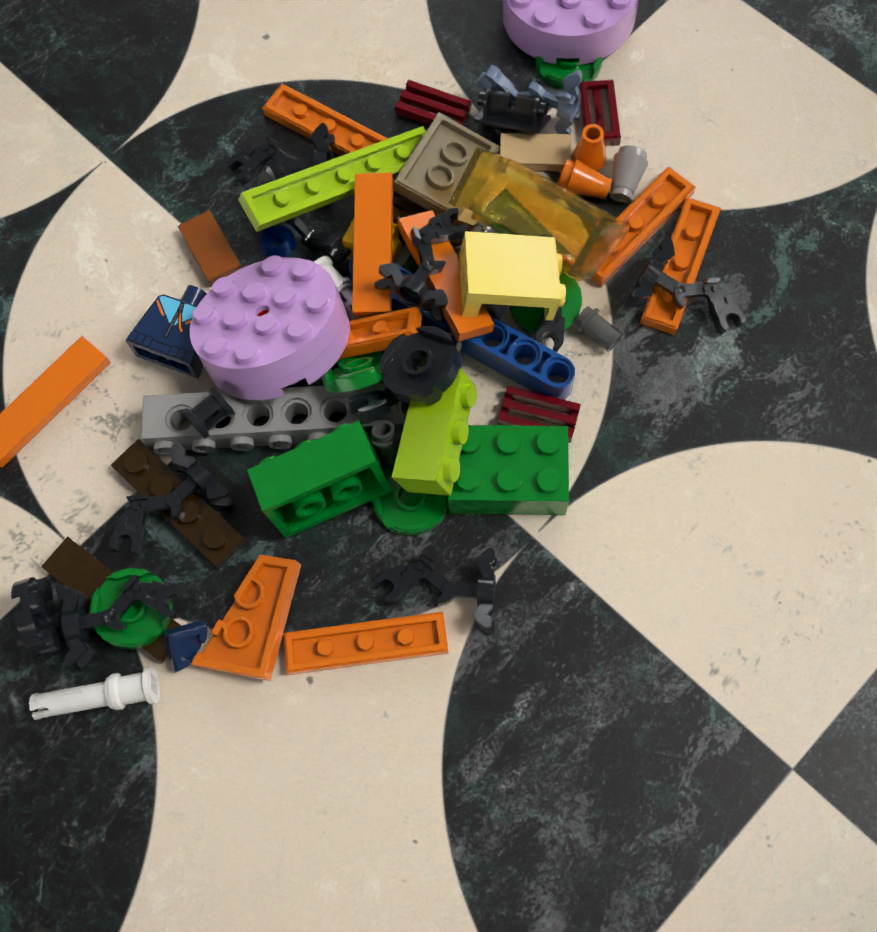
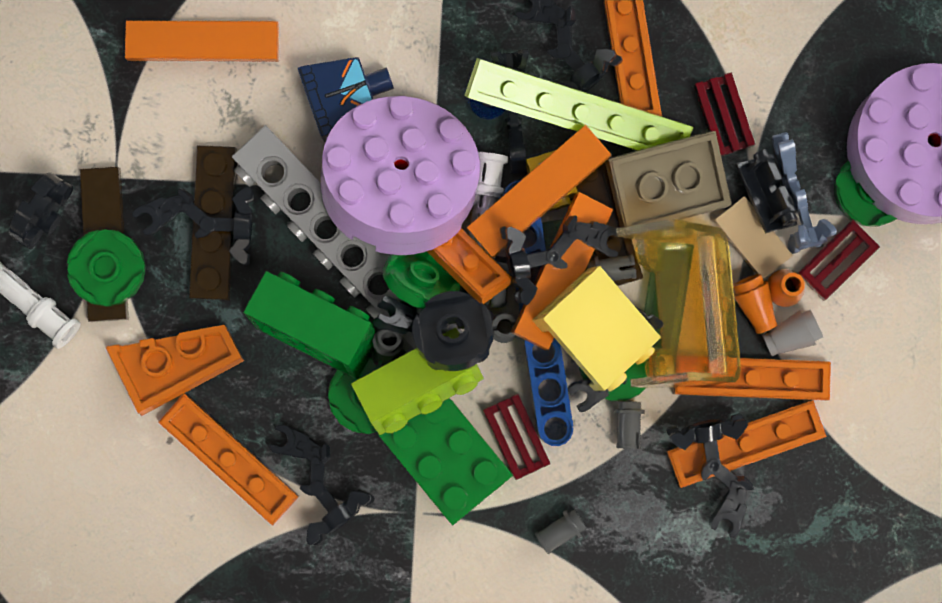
camera: 50 degrees right, 15 degrees up
(77, 624) = (60, 243): black piece -> none
(184, 643) = (116, 328): dark blue tile -> none
(209, 247) = (438, 49): dark orange tile -> none
(209, 412) = (290, 194): black bush -> none
(639, 436) = (561, 531): none -> dark grey pin

